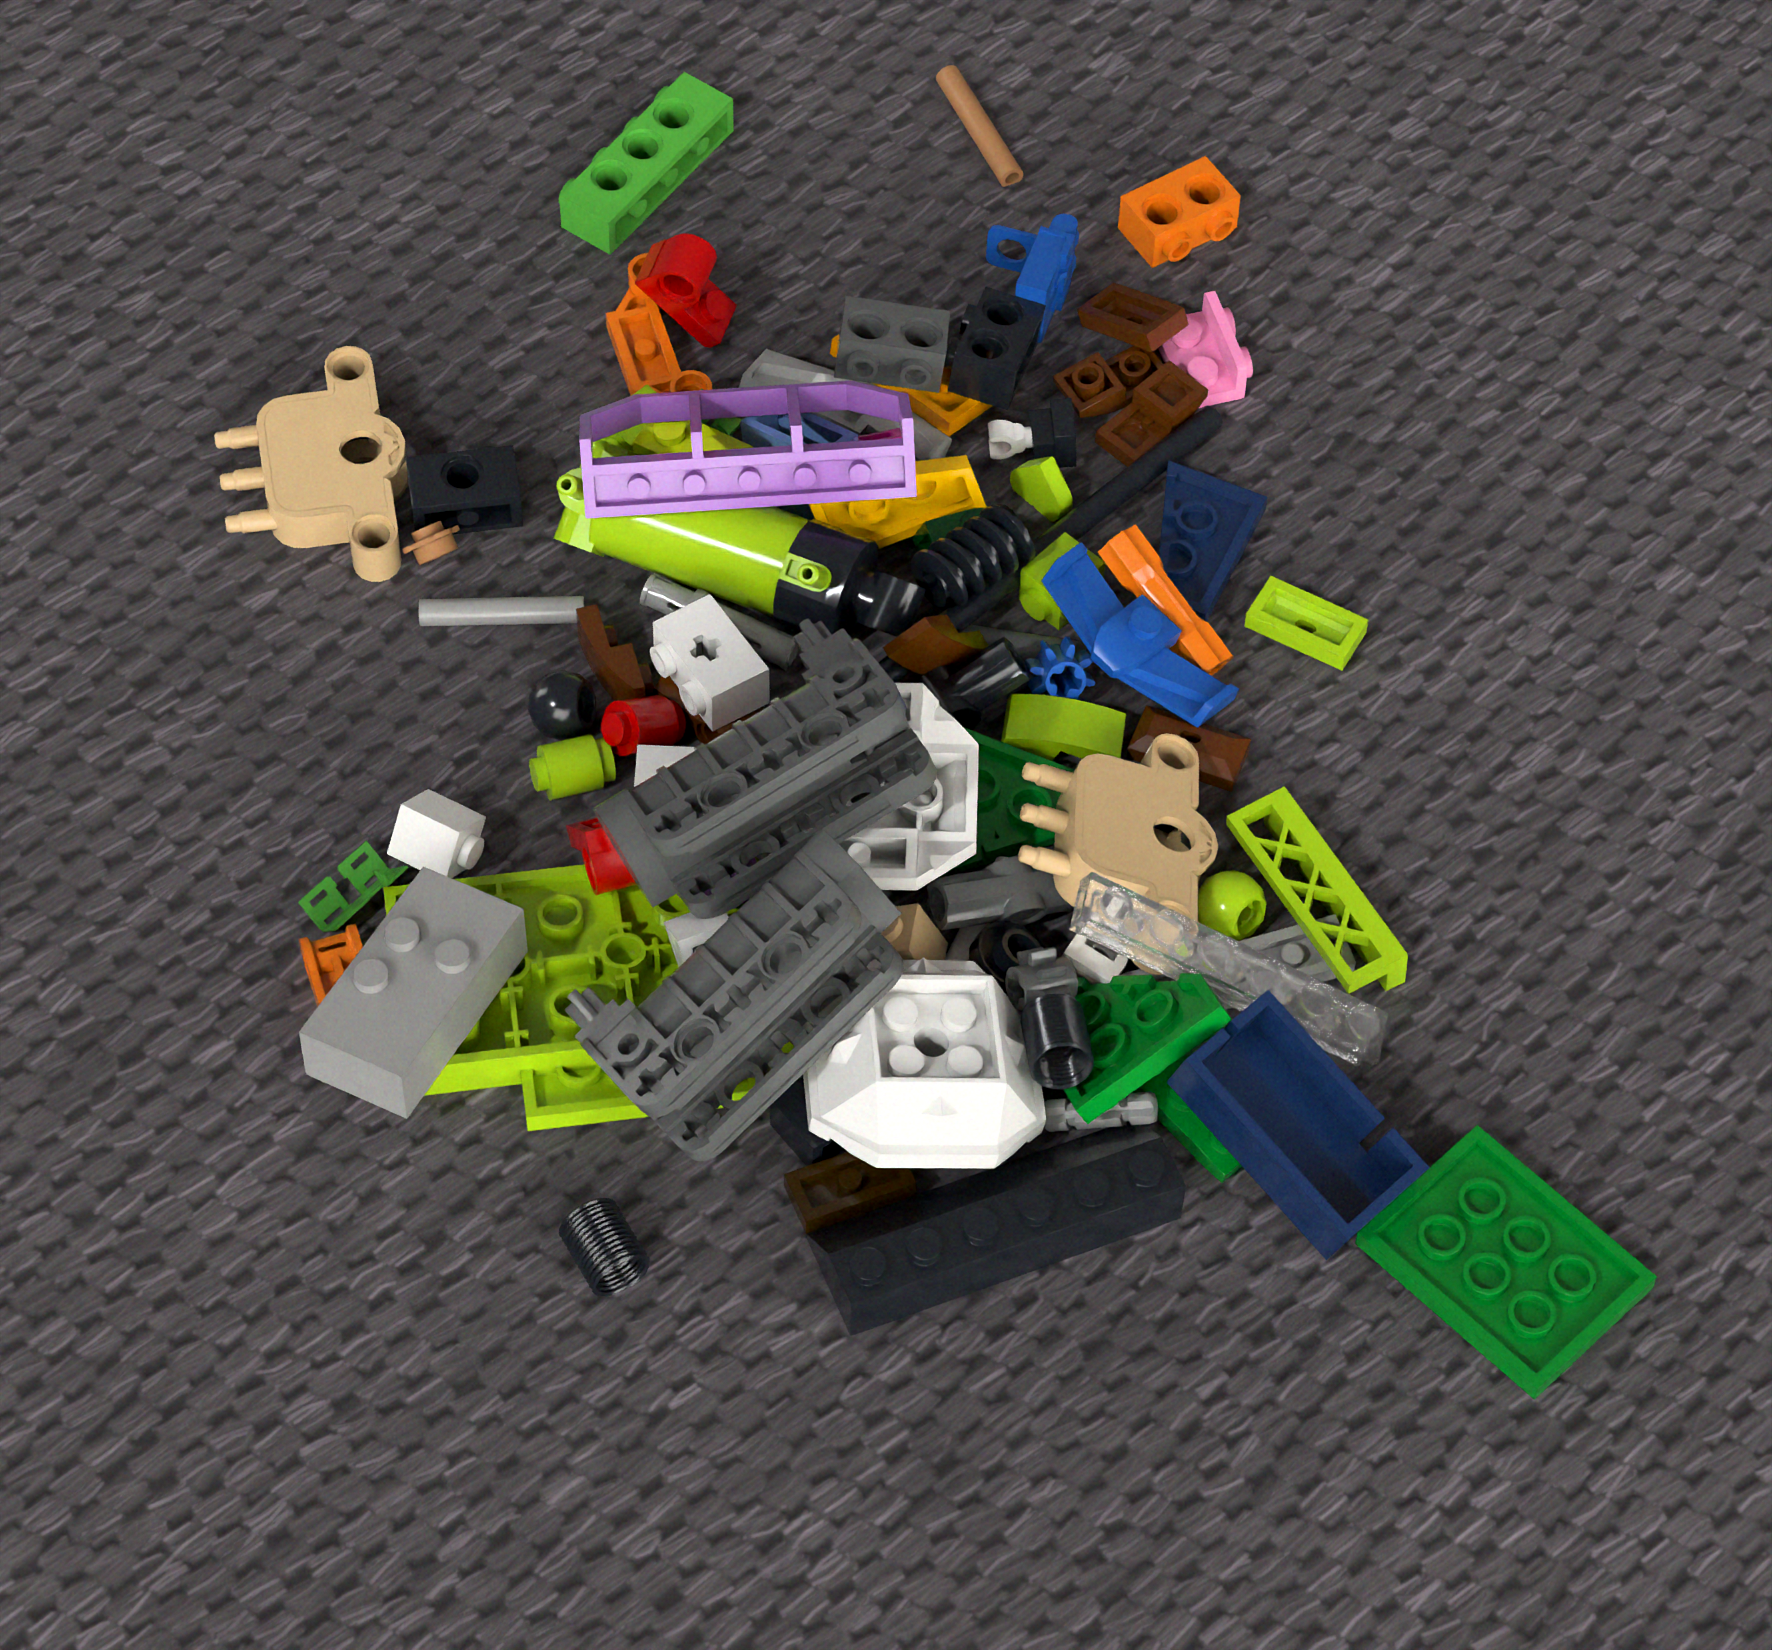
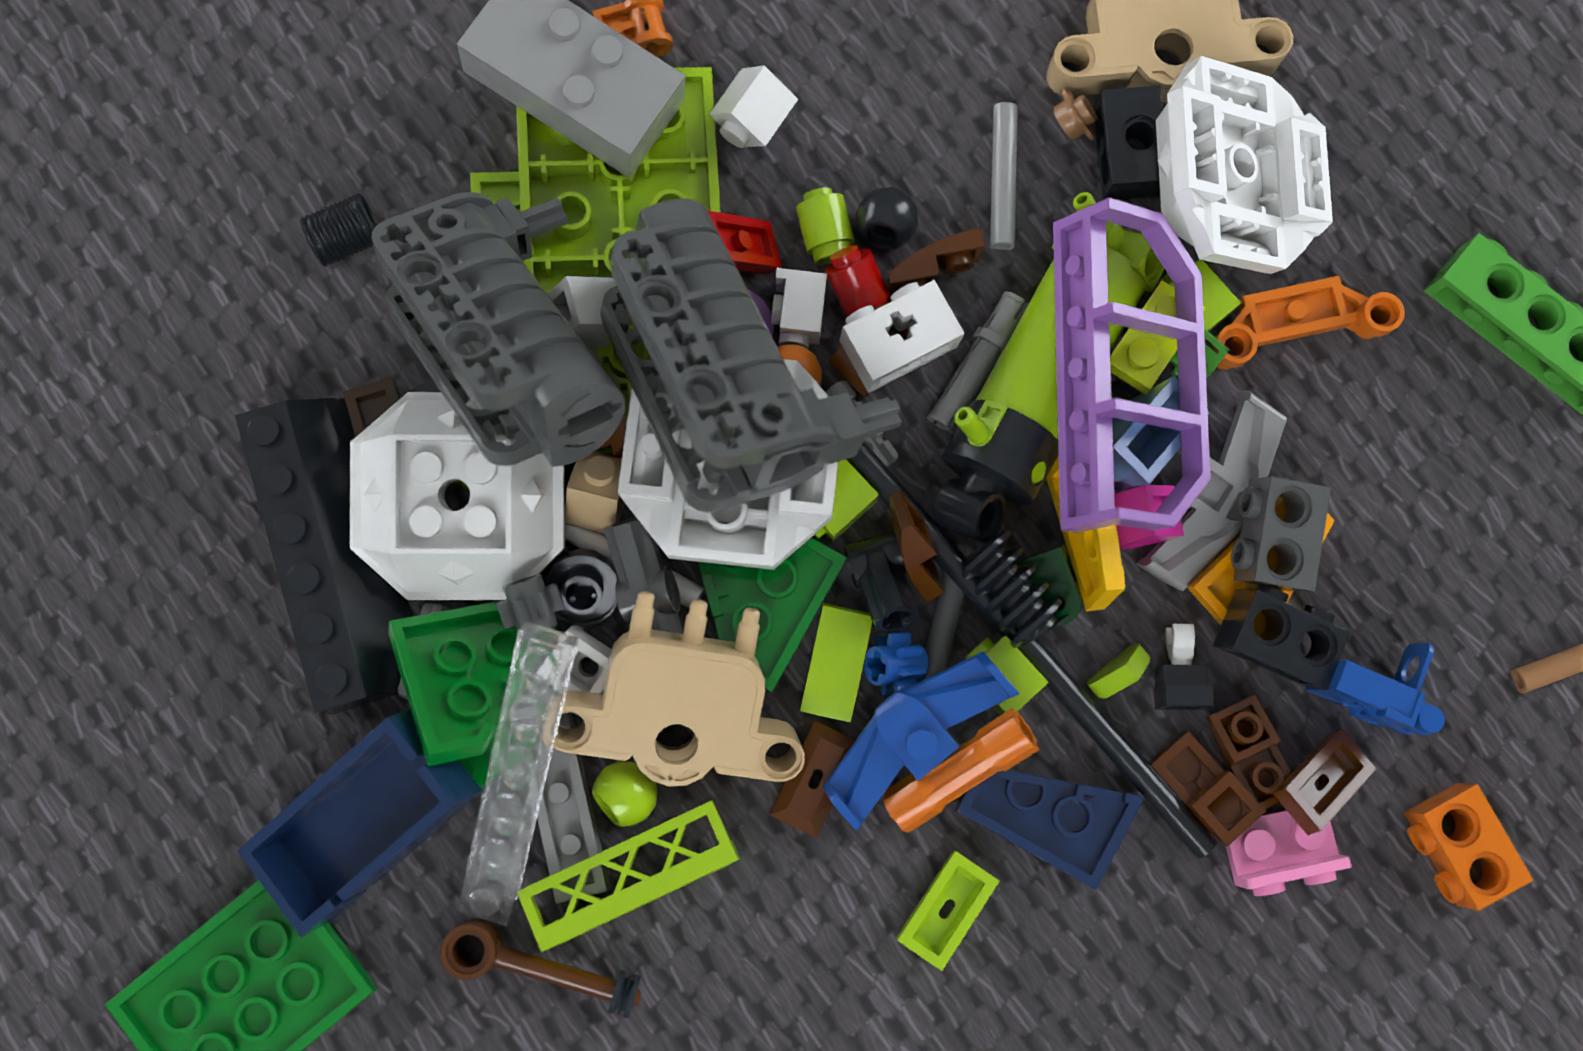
camera: 95 degrees right, 25 degrees up
(368, 868) = (716, 64): bright green piece -> none
(503, 384) = (1241, 167): none -> white piece
(679, 282) = (1362, 340): red plate -> none
(1057, 1041) = (453, 609): black piece -> none
(1439, 901) = (621, 993): none -> reddish brown piece

